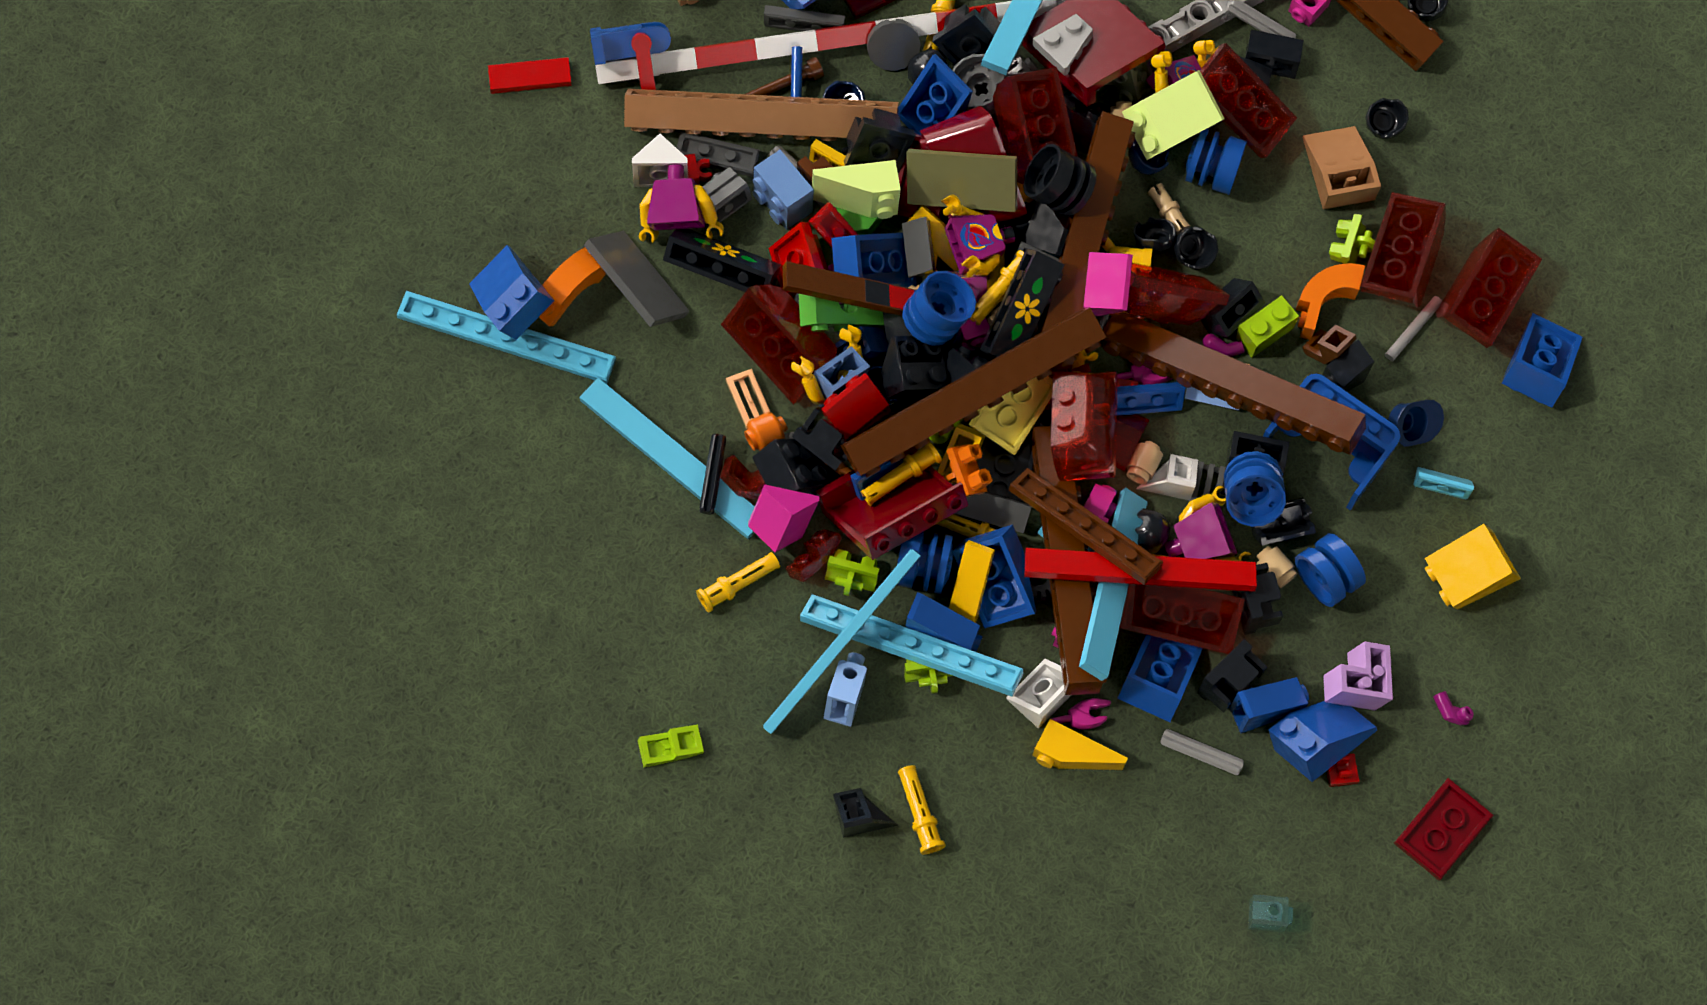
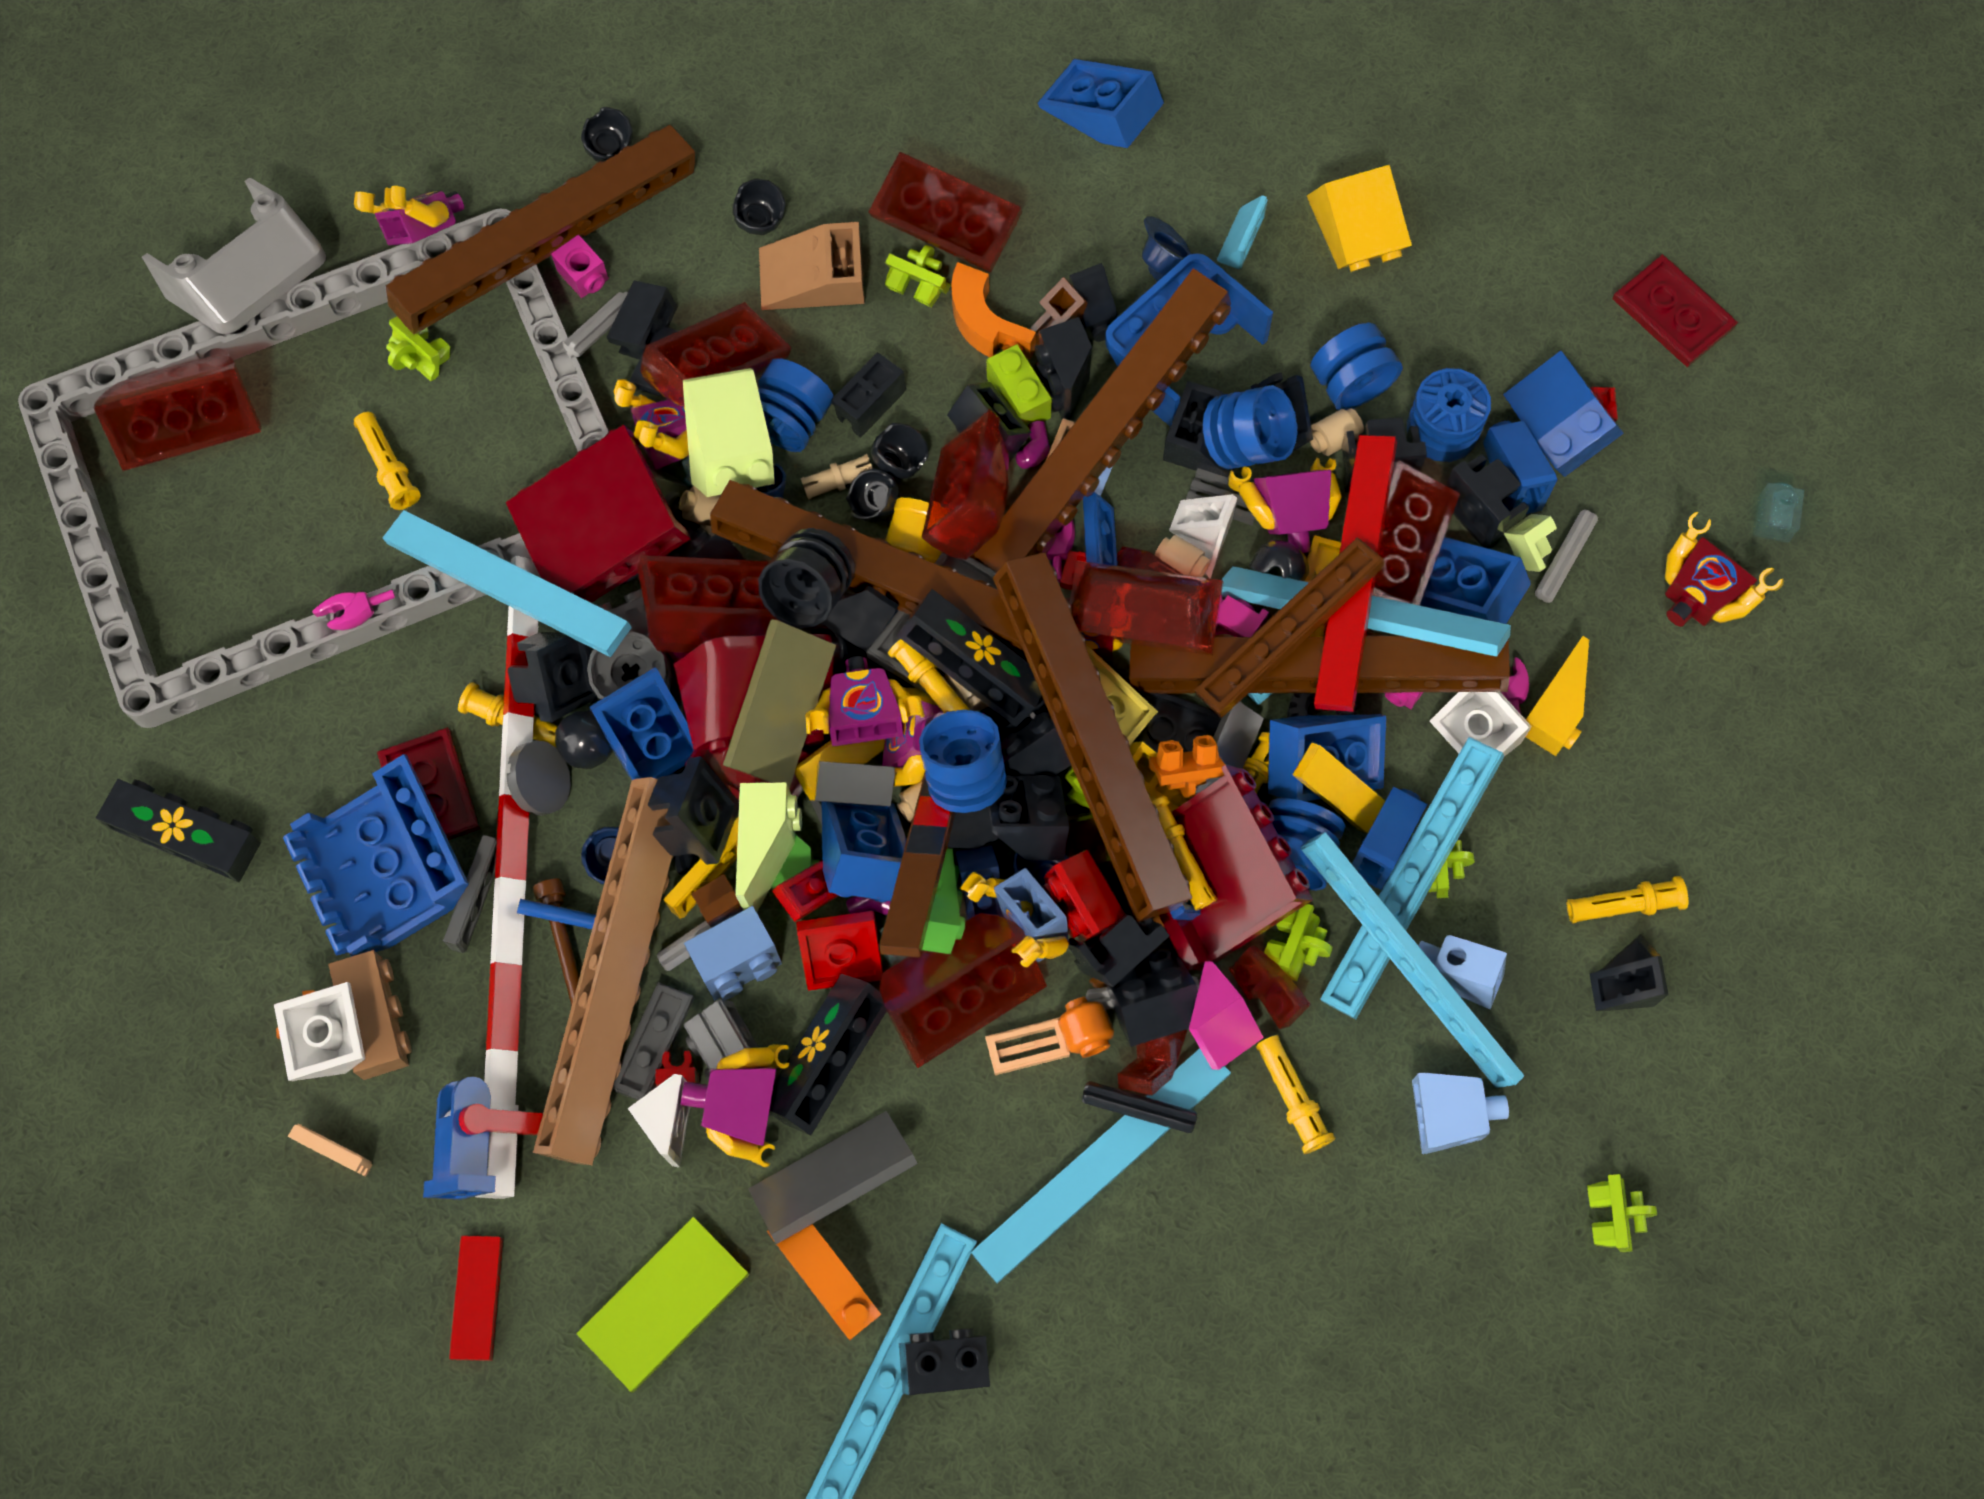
camera: 75 degrees left, 0 degrees up
(510, 293) = (829, 1365): blue slope -> none
(519, 366) = (944, 1363): none -> black brick
(540, 190) = (662, 1304): none -> lime tile
(670, 746) = (1519, 1217): lime slope -> none
(680, 813) = (1617, 1232): none -> lime hips
(740, 691) = (1454, 1110): none -> light blue torso
(1064, 42) = (597, 548): light grey wing -> none
(1107, 282) = (965, 539): dark pink slope -> none
(1196, 857) = (1709, 582): none -> torso
(1205, 719) = (1530, 541): none -> yellowish green panel
(1240, 220) = (869, 394): none -> black hinge
(1289, 355) = (1064, 364): none -> black slope
(1295, 659) = (1447, 430): none -> blue wheel
(1364, 681) = (1494, 352): lavender brick -> none
(1413, 328) = (1044, 237): light grey bar -> none
(1451, 713) = (1534, 274): magenta arm -> none
(1488, 287) = (1006, 136): clear red windscreen -> none

